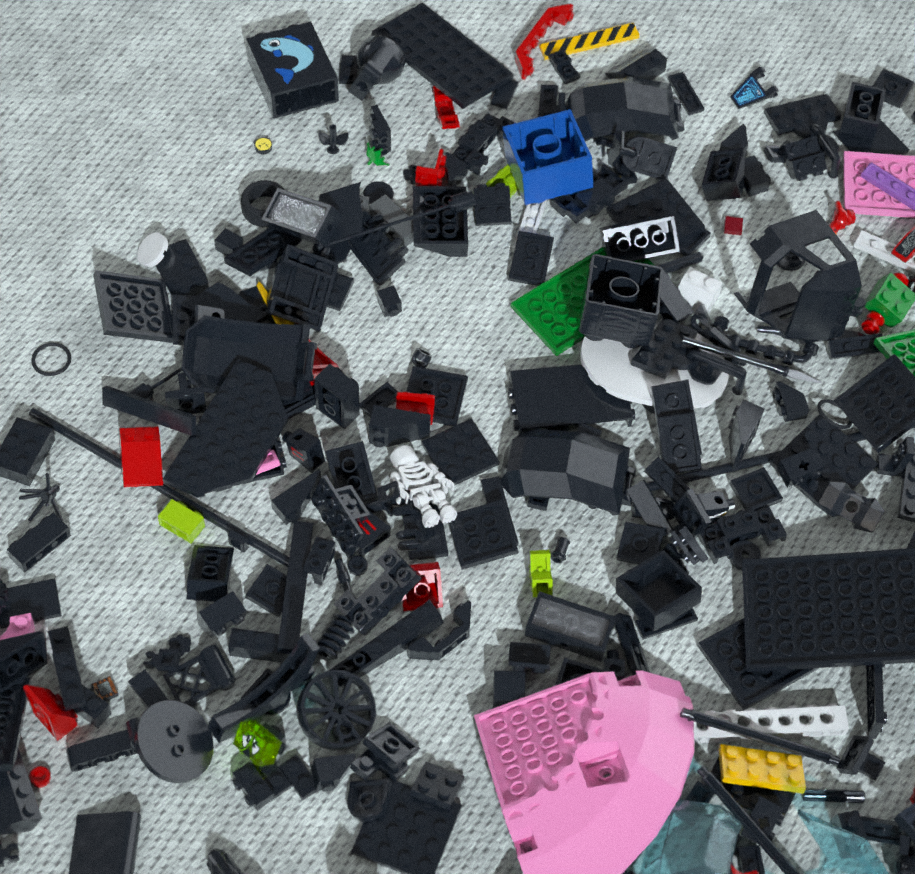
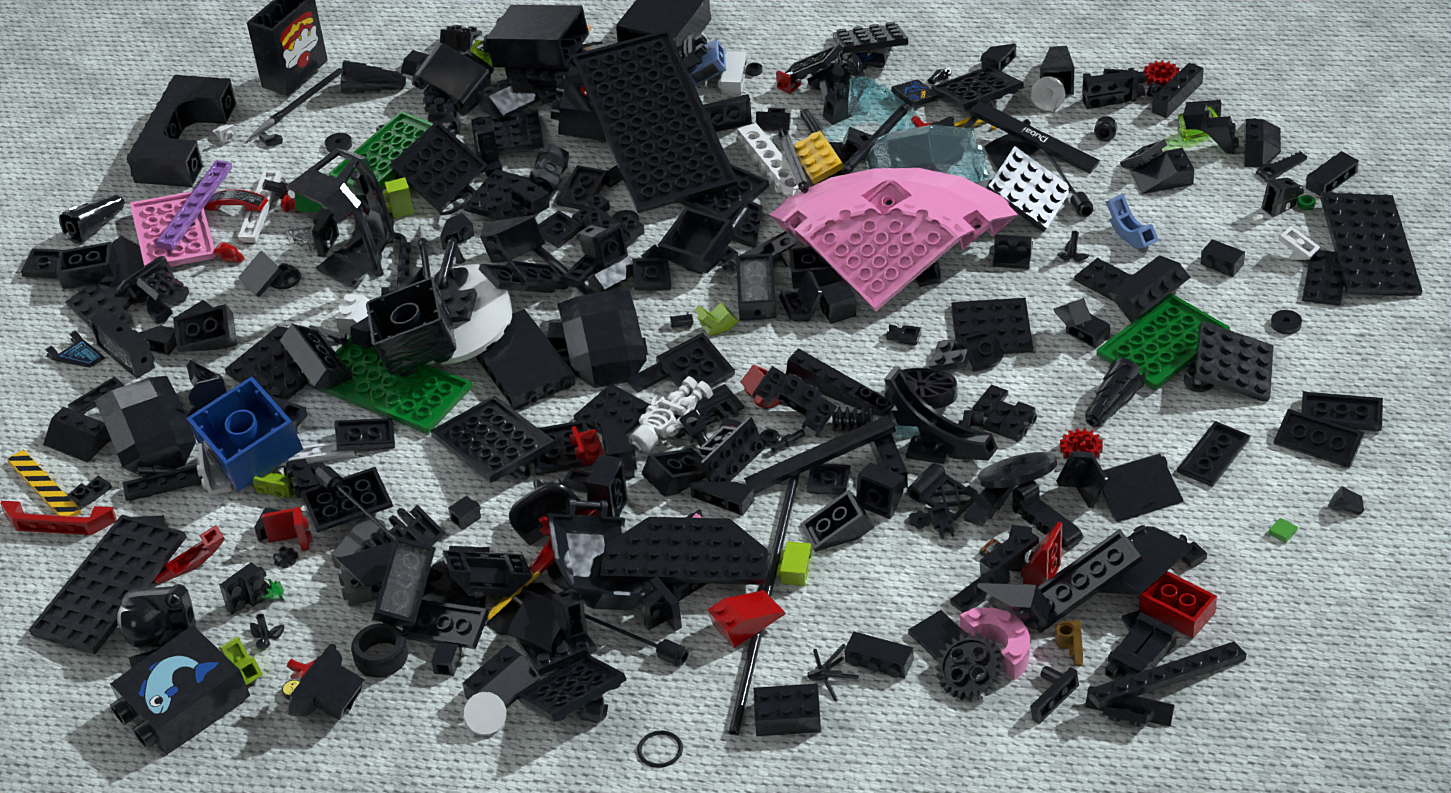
camera: 105 degrees left, 15 degrees down
(142, 793) = (1085, 474): none -> black bracket
(149, 410) = (693, 622): black tile -> none
(174, 823) = (1076, 439): none -> red gear
(236, 151) = (324, 685): none -> black piece
(238, 541) = (793, 517): black tile -> none
(257, 743) = (985, 415): clear neon green brick -> none
(304, 117) = (238, 655): none -> lime brick
(304, 448) = (672, 499): black torso -> none
(320, 559) = (781, 450): black bracket -> none
(330, 771) = (975, 376): black slope -> none
(344, 350) = (530, 512): none -> black piece
(376, 190) = (321, 577): black piece -> none
(391, 745) = (929, 351): black tile -> none
(423, 650) = (782, 351): black slope -> none
(435, 741) = (905, 335): none -> black plate
(437, 785) = (945, 317): black plate -> none
(465, 342) = (493, 439): none -> black plate
(478, 139) = (229, 519): black bracket -> none
(683, 660) = (747, 223): none -> black wing
(691, 549) = (640, 237): black plate -> none
(730, 112) = (122, 343): none -> black brick
(733, 225) = (262, 319): dark red tile -> none
(814, 532) = (581, 186): none -> black tile
(856, 363) = (399, 198): none -> lime brick

